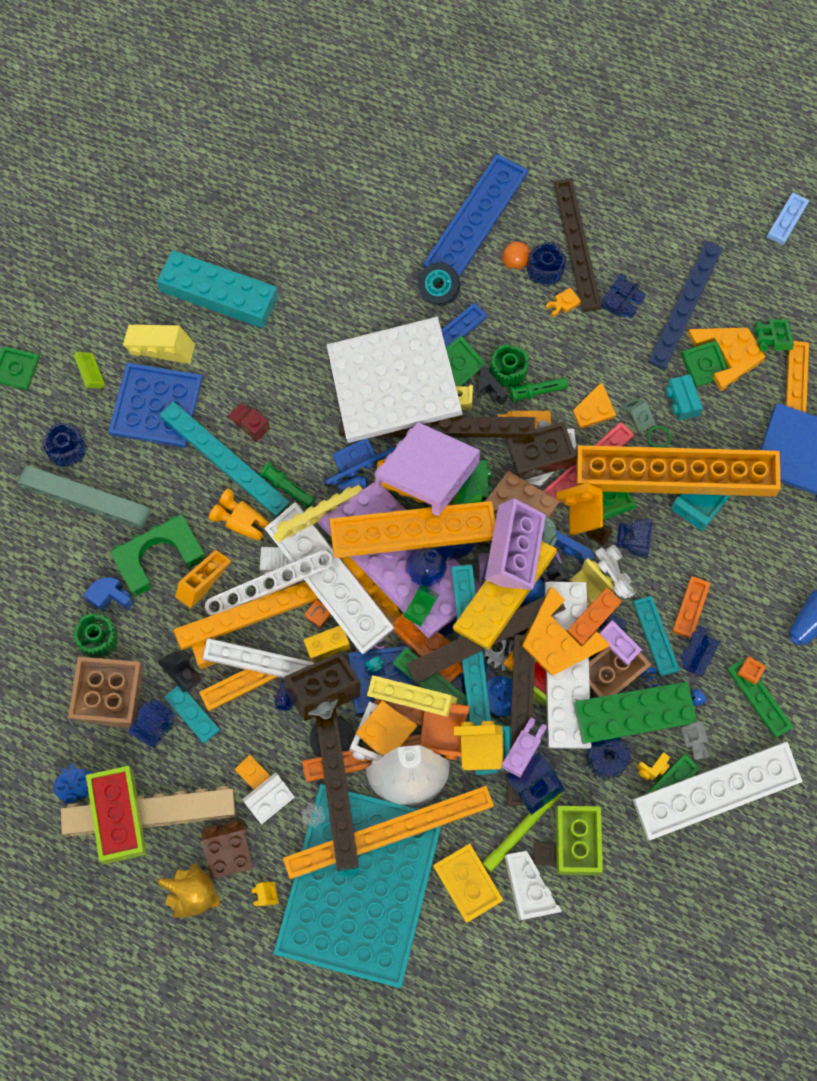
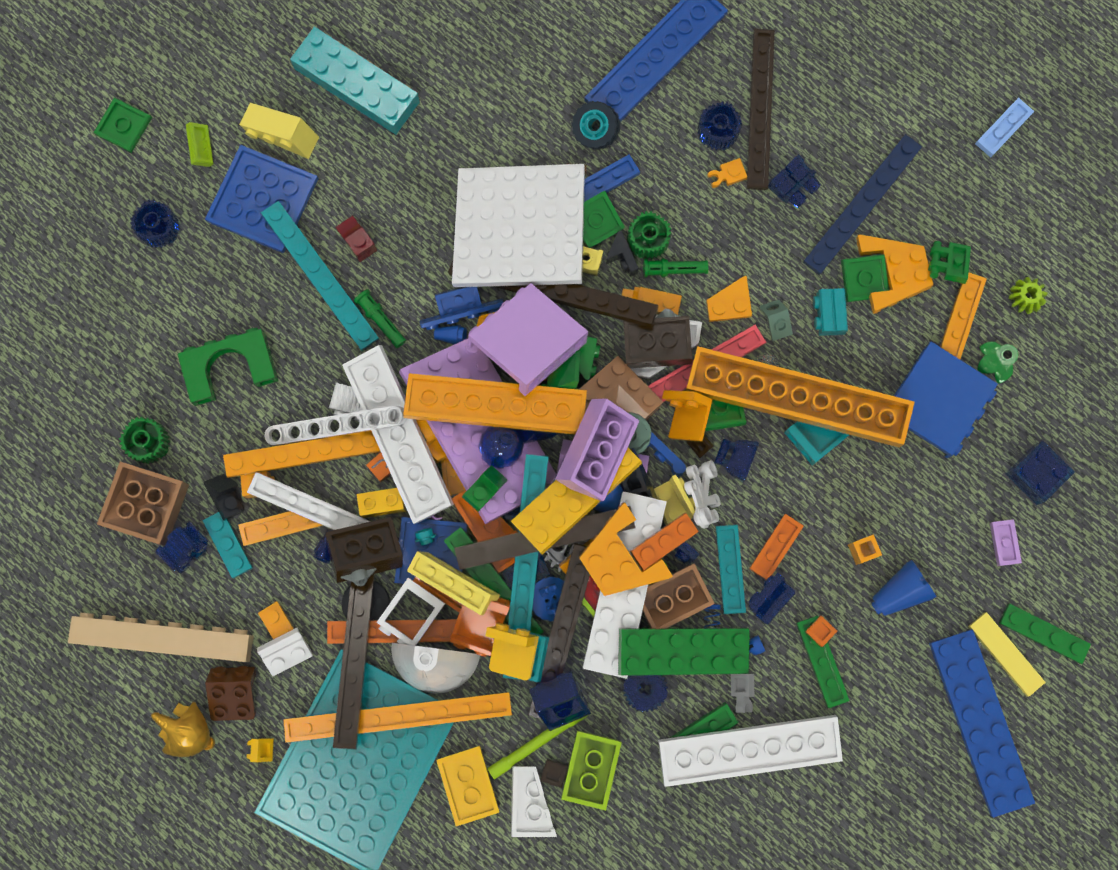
camera: 15 degrees right, 10 degrees up
(71, 784) = (91, 593): blue plate -> none
(83, 496) = (164, 285): sand green beam -> none
(105, 590) = (163, 394): blue brick -> none
(116, 815) = (123, 638): red brick -> none
(201, 579) = (268, 402): light orange slope -> none
(241, 518) = (324, 344): light orange piece -> none
(311, 809) = (319, 678): clear plant -> none
(313, 515) = (392, 365): light yellow plate -> none
(385, 729) = (417, 612): light orange plate -> none
(516, 255) = (689, 108): orange hair -> none
(523, 749) = (554, 666): lavender hinge -> none
(620, 642) = (685, 574): lavender plate -> none
(659, 427) = (793, 361): green piece -> none
(659, 767) = (695, 711): yellow bracket -> none
(770, 591) = (864, 549): none -> light orange brick

